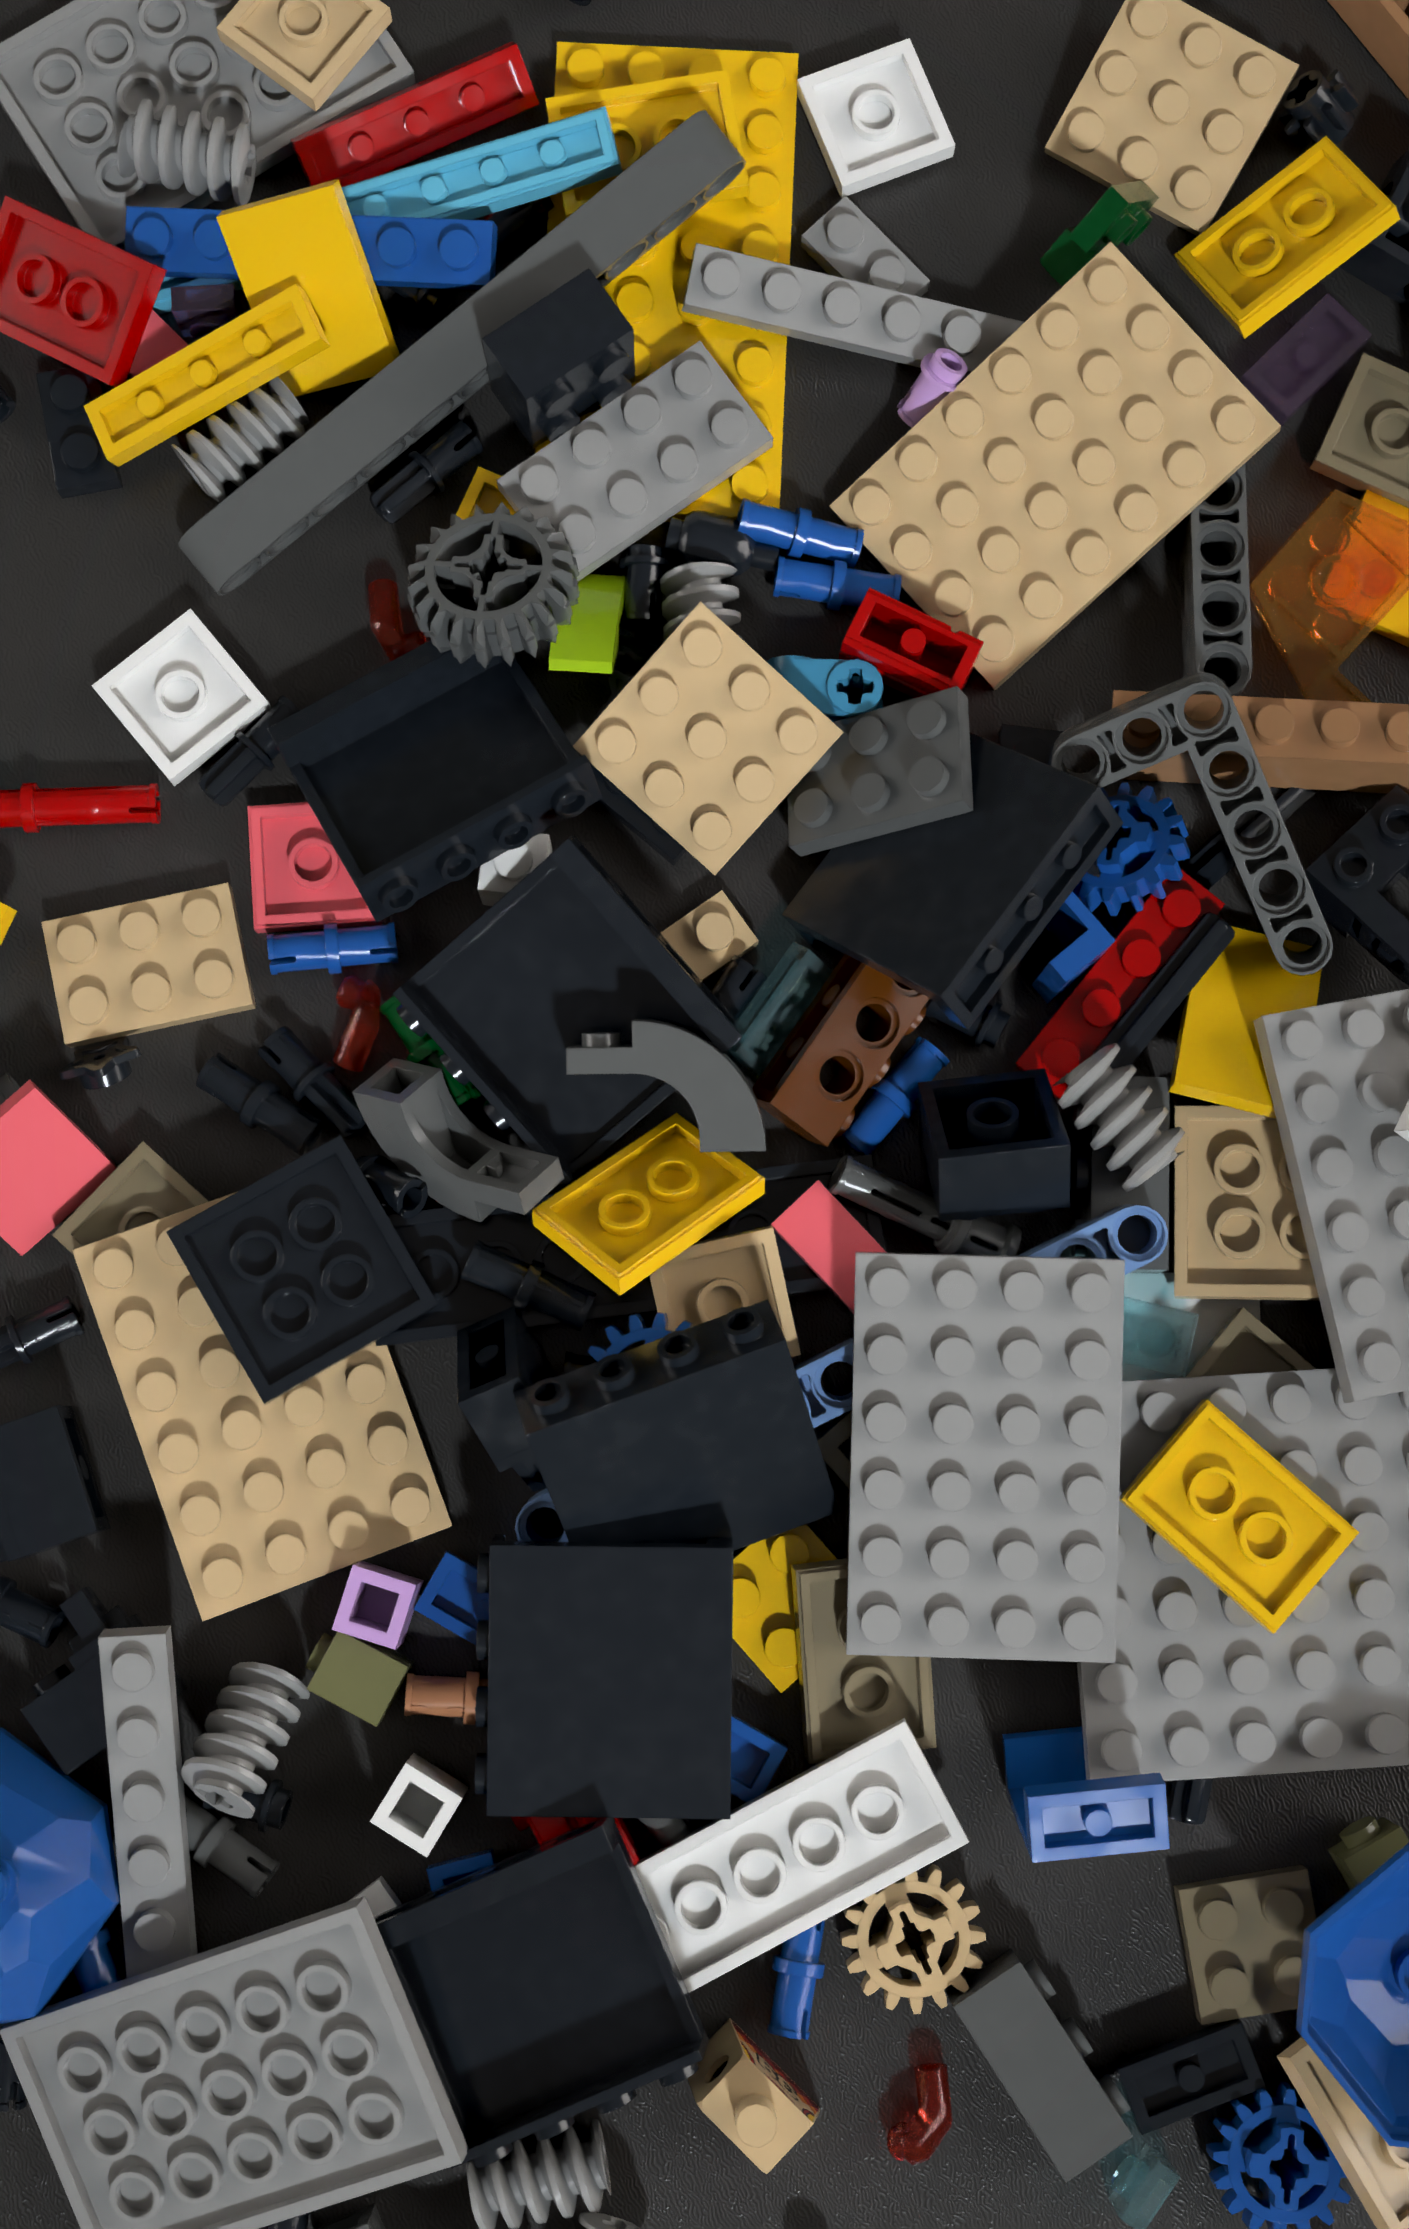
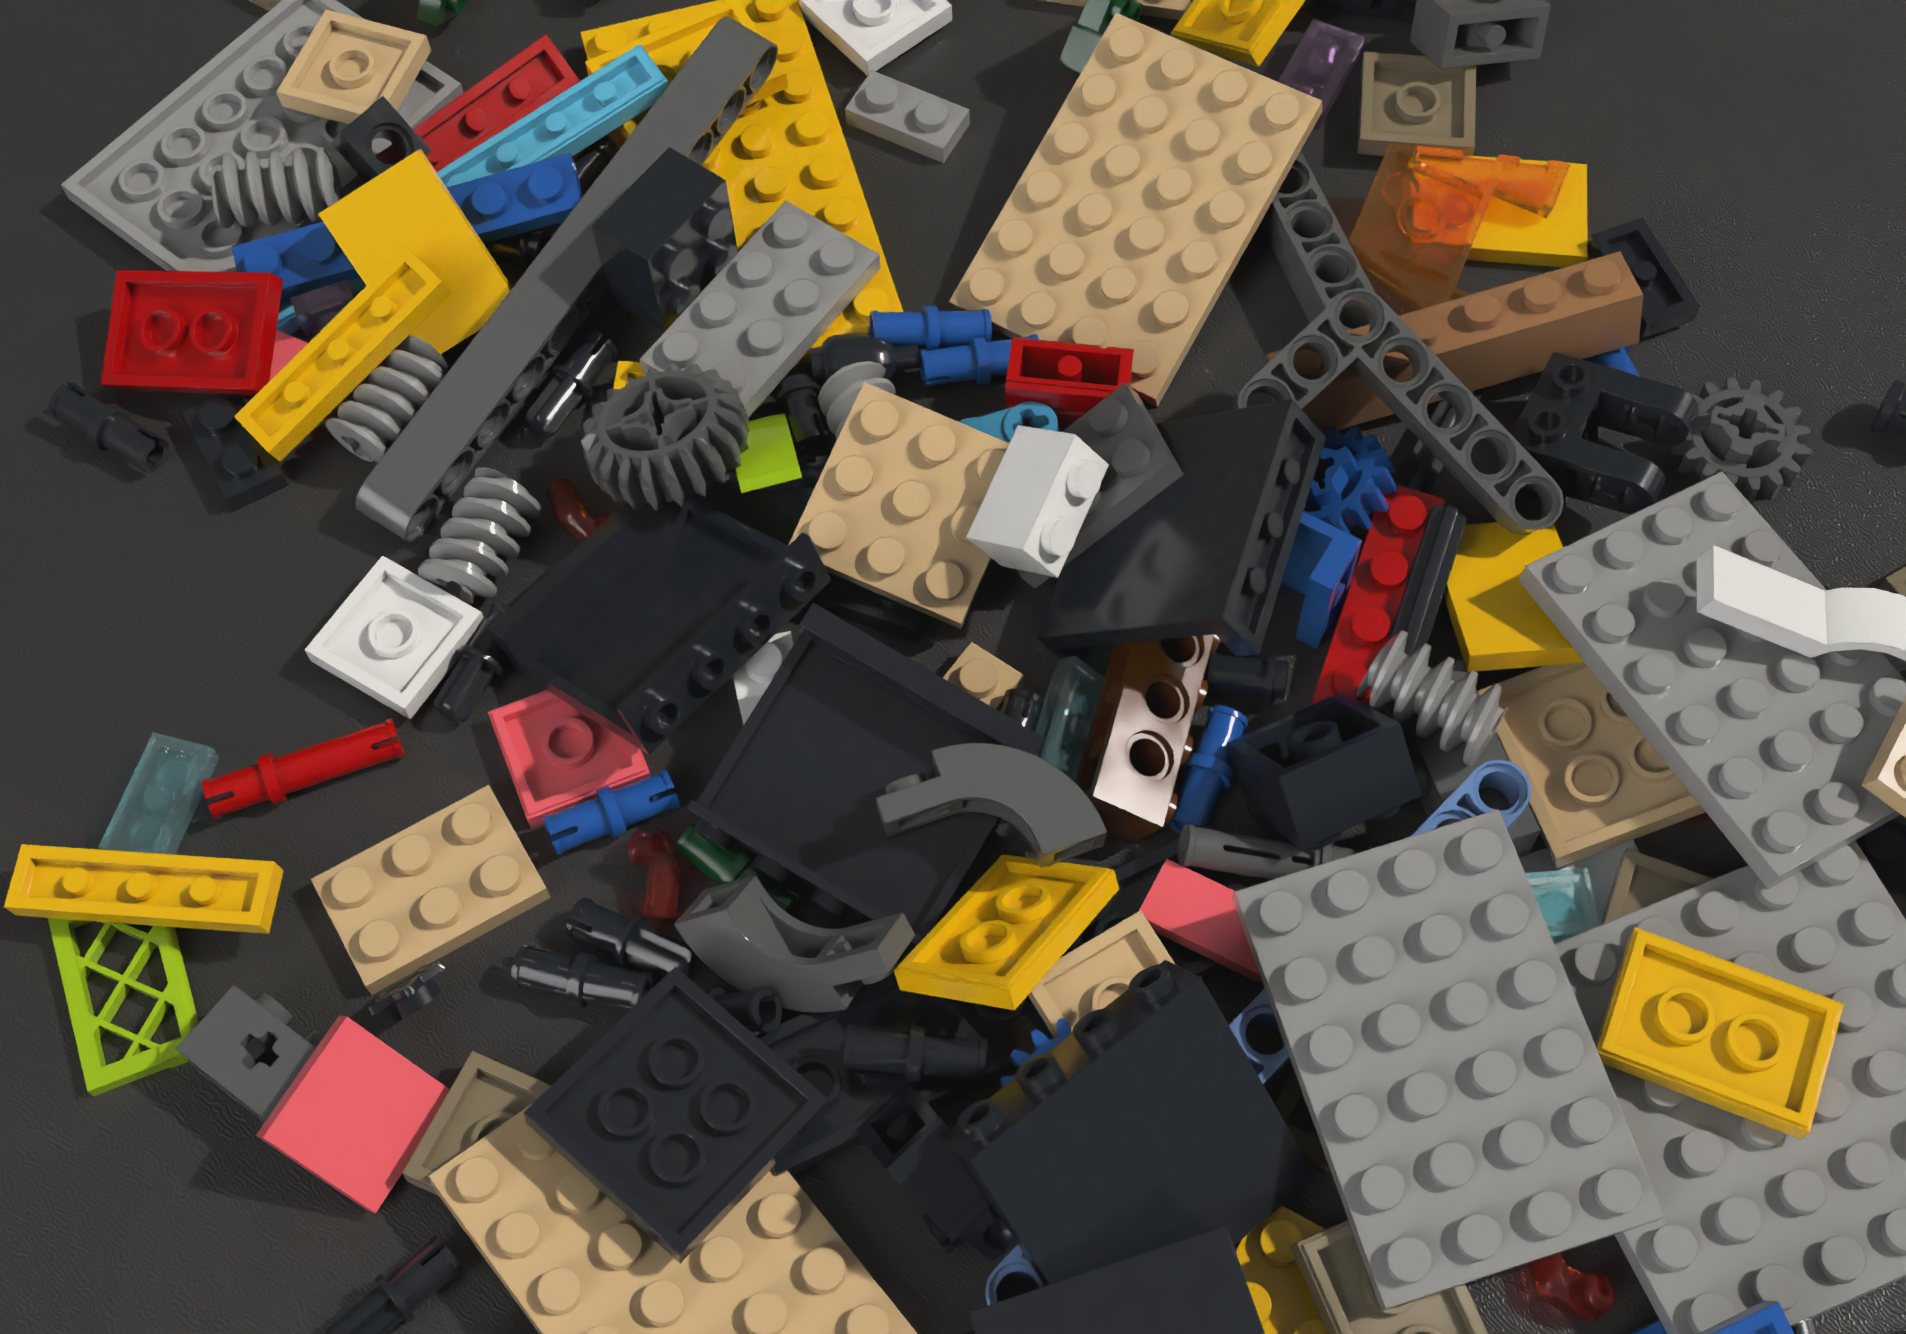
camera: 10 degrees left, 20 degrees down
(290, 620) = (480, 534): none -> light grey piece
(291, 117) = (376, 122): none -> black brick
(824, 788) = (1038, 500): none -> white brick
(837, 310) = (898, 149): light grey plate -> none
(938, 378) = (1007, 168): lavender pin -> none
(1025, 1681) = (1572, 1291): none -> clear red arm

